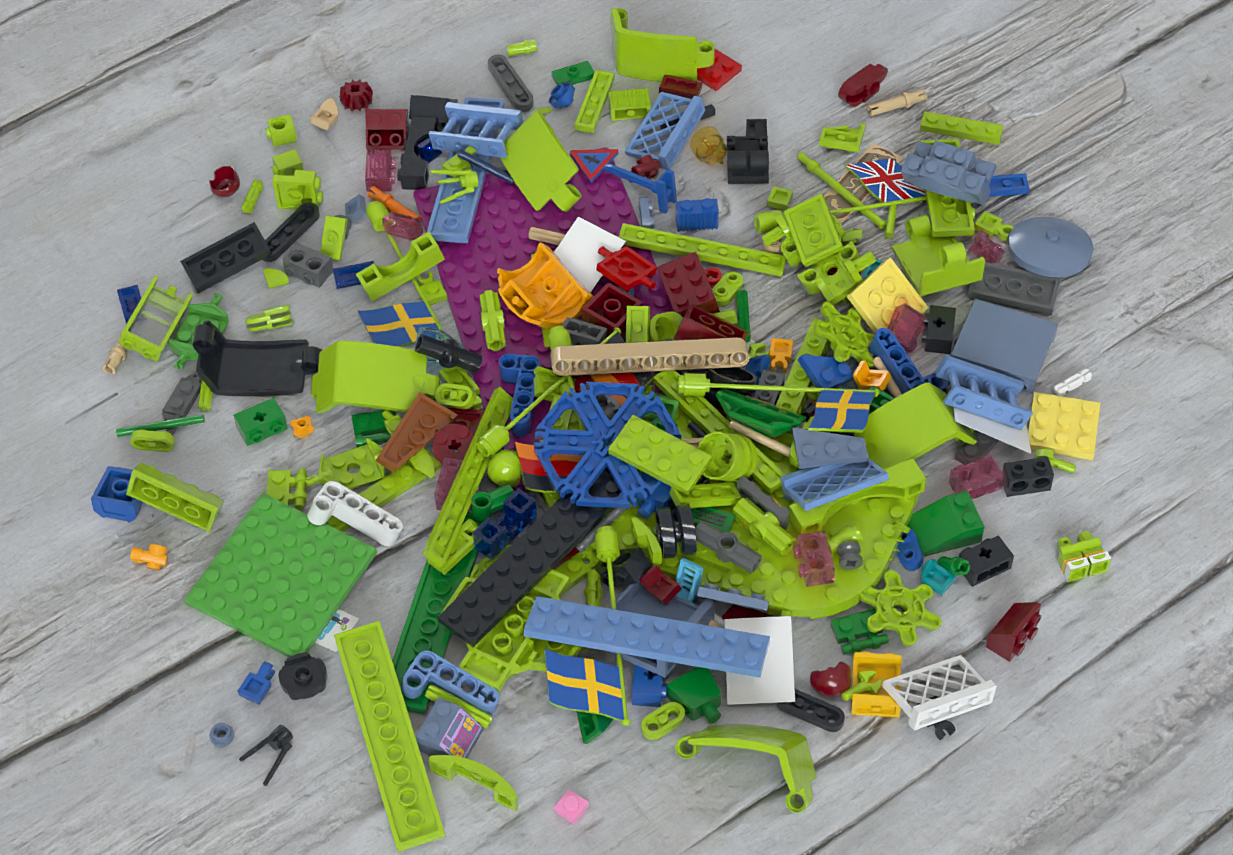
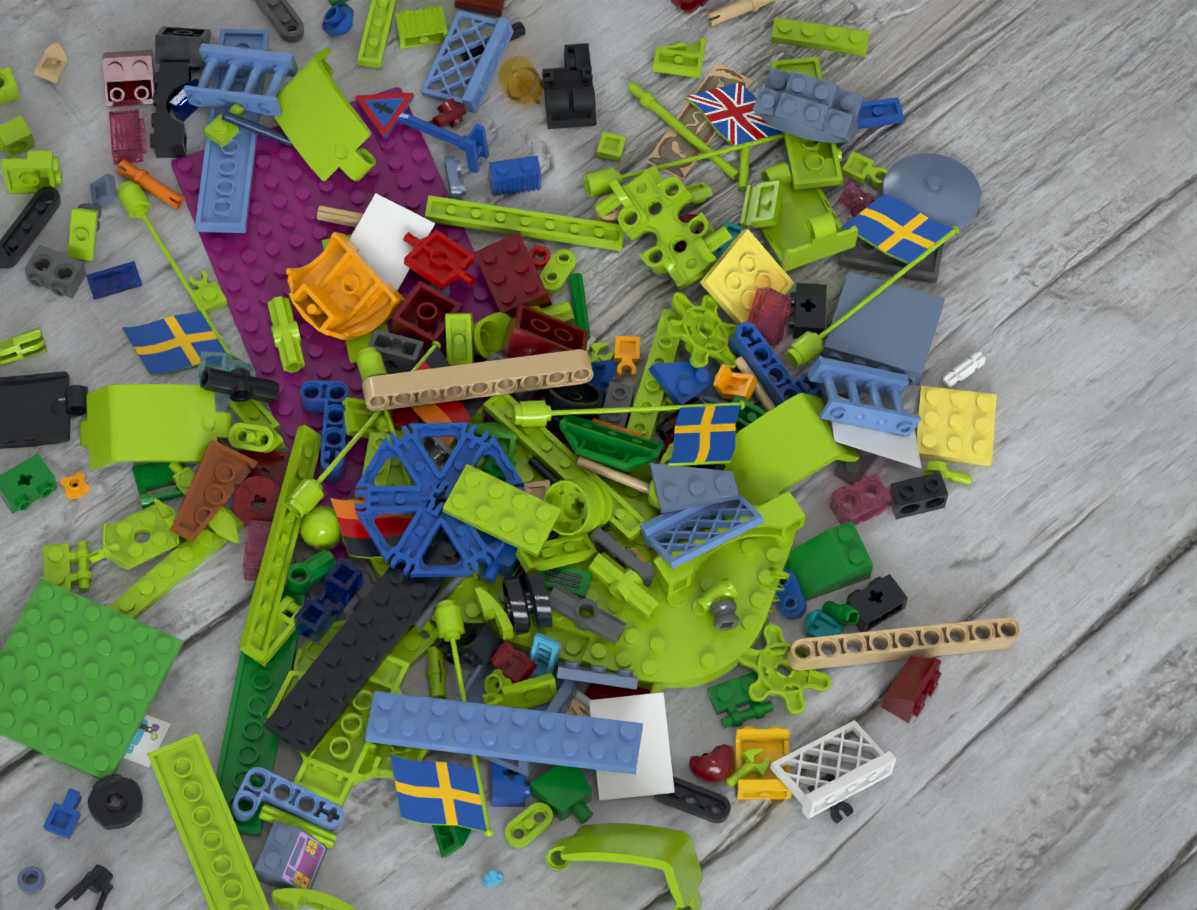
camera: 10 degrees left, 10 degrees up
(275, 277) = (17, 289): lime tile -> none
(355, 511) = (186, 612): white beam -> none
(356, 95) = (86, 32): dark red gear -> none
(382, 279) = (148, 287): lime arch -> none
(401, 226) = (162, 213): clear pink plate -> none
(467, 179) = (236, 150): lime plant -> none
(626, 763) = (492, 878): none -> medium azure piece
(645, 601) = (492, 680): none -> lime plate
(674, 608) = (524, 693): none -> lime plate
(813, 230) = (656, 199): lime plate -> none
(818, 558) = (691, 621): clear pink brick -> none
(905, 245) = (762, 204): none -> lime plate
(998, 598) = (894, 651): none -> tan beam
(1016, 269) = (896, 232): none -> flag
(1082, 557) = (983, 592): lime hips -> none

